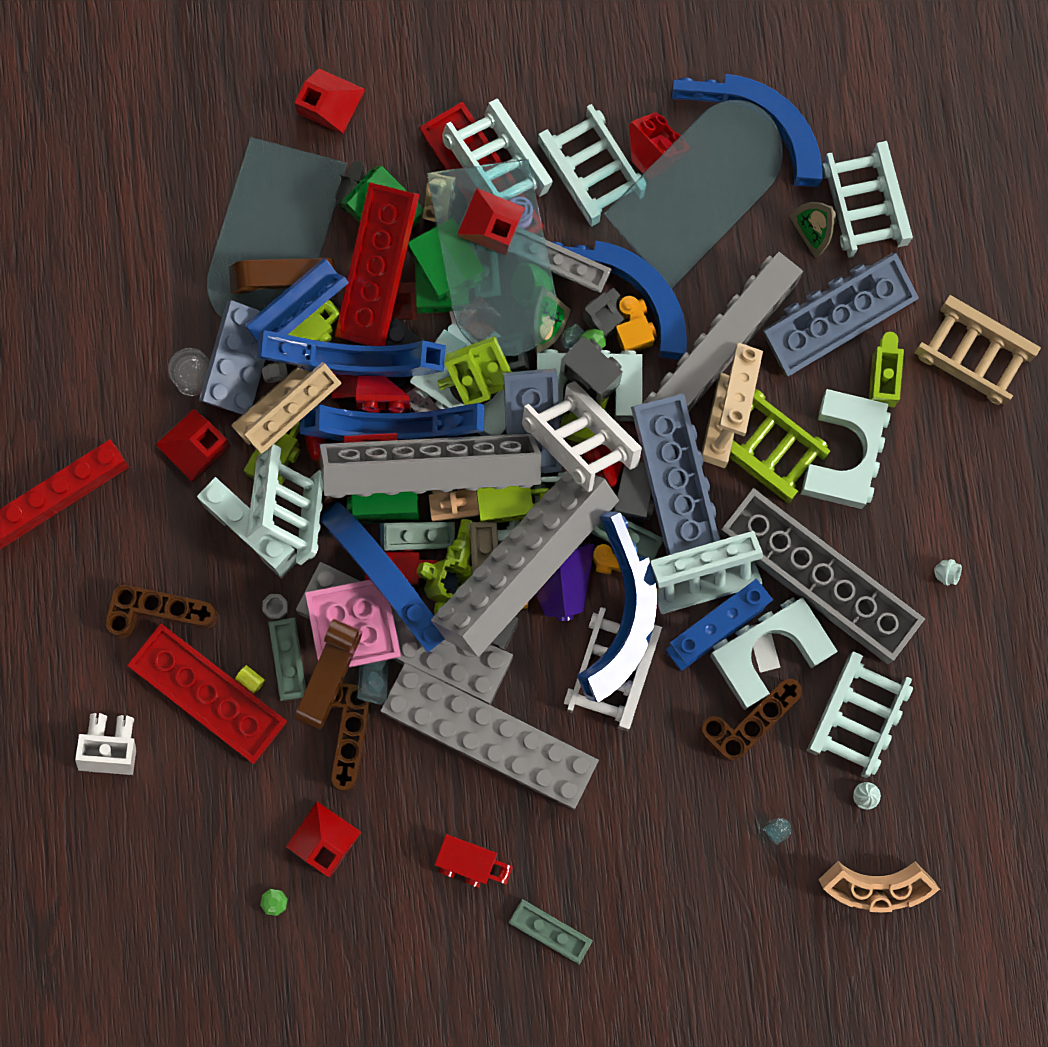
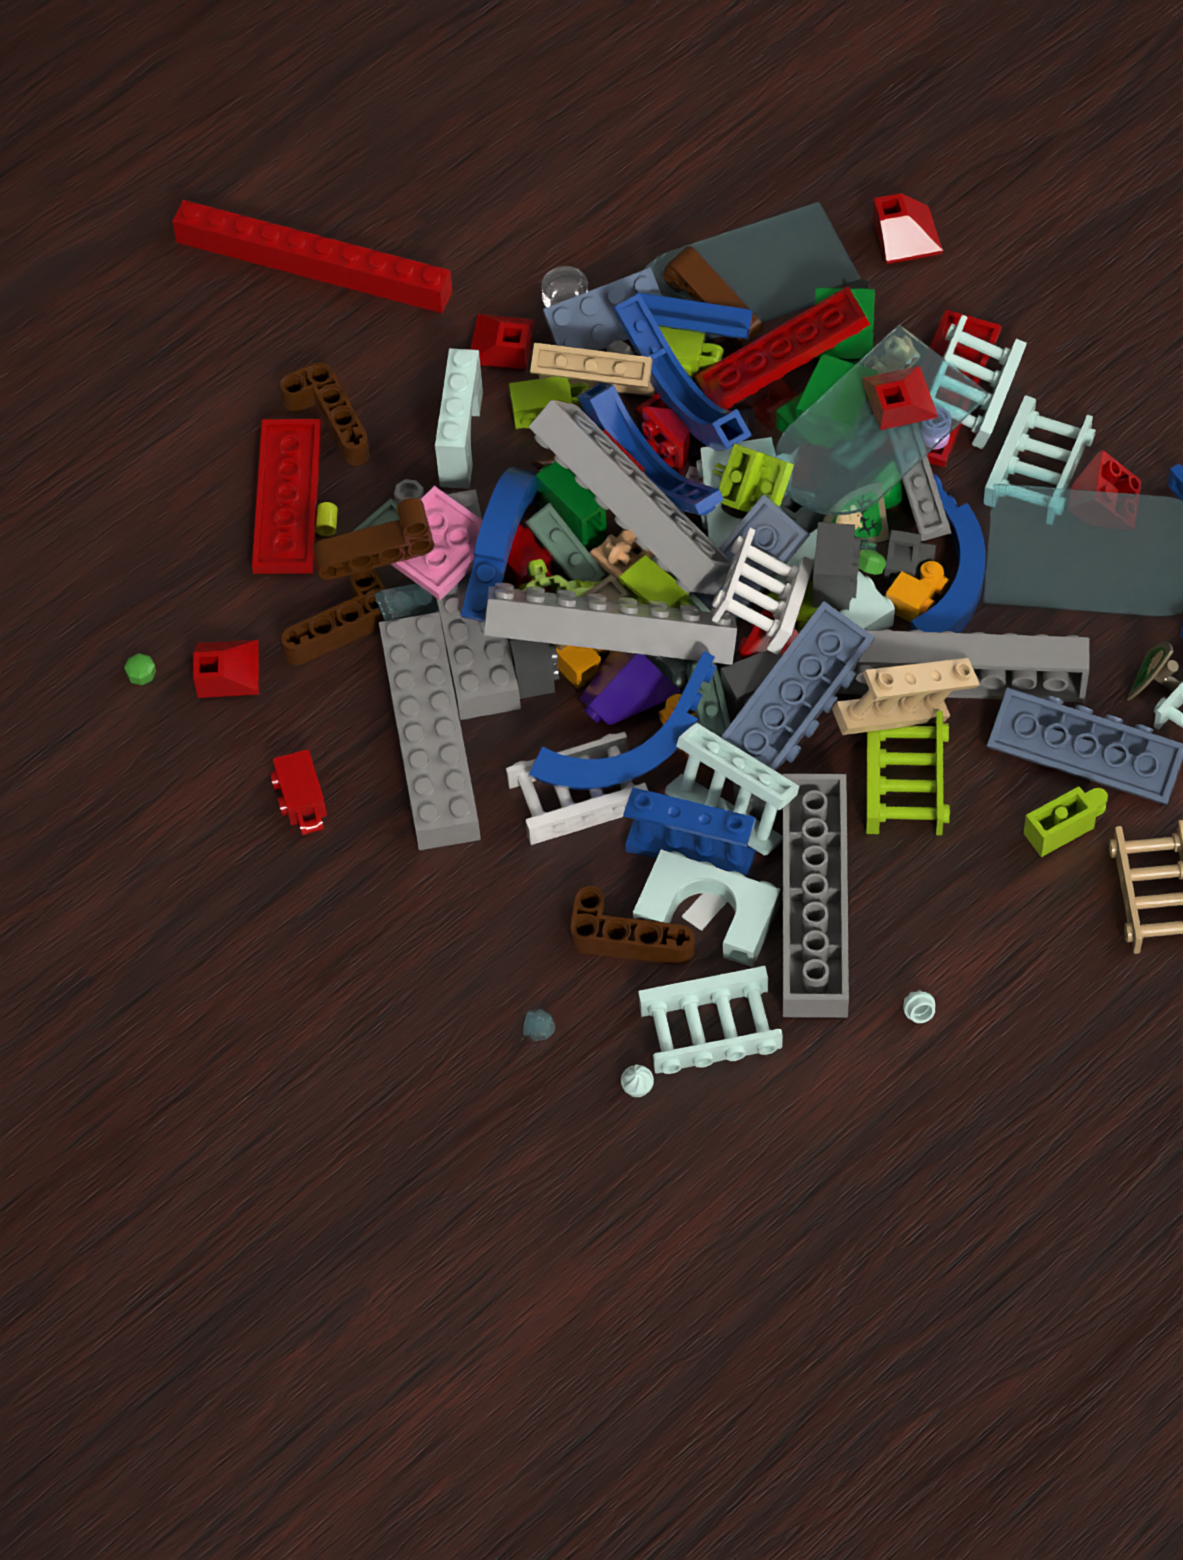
camera: 60 degrees right, 20 degrees down
(107, 753) = (171, 452): white brick -> none
(264, 505) = (485, 399): light aqua fence -> none
(550, 931) = (288, 903): sand green tile -> none
(867, 421) = (933, 868): light aqua arch -> none
(879, 892) = (536, 1127): light nougat brick -> none

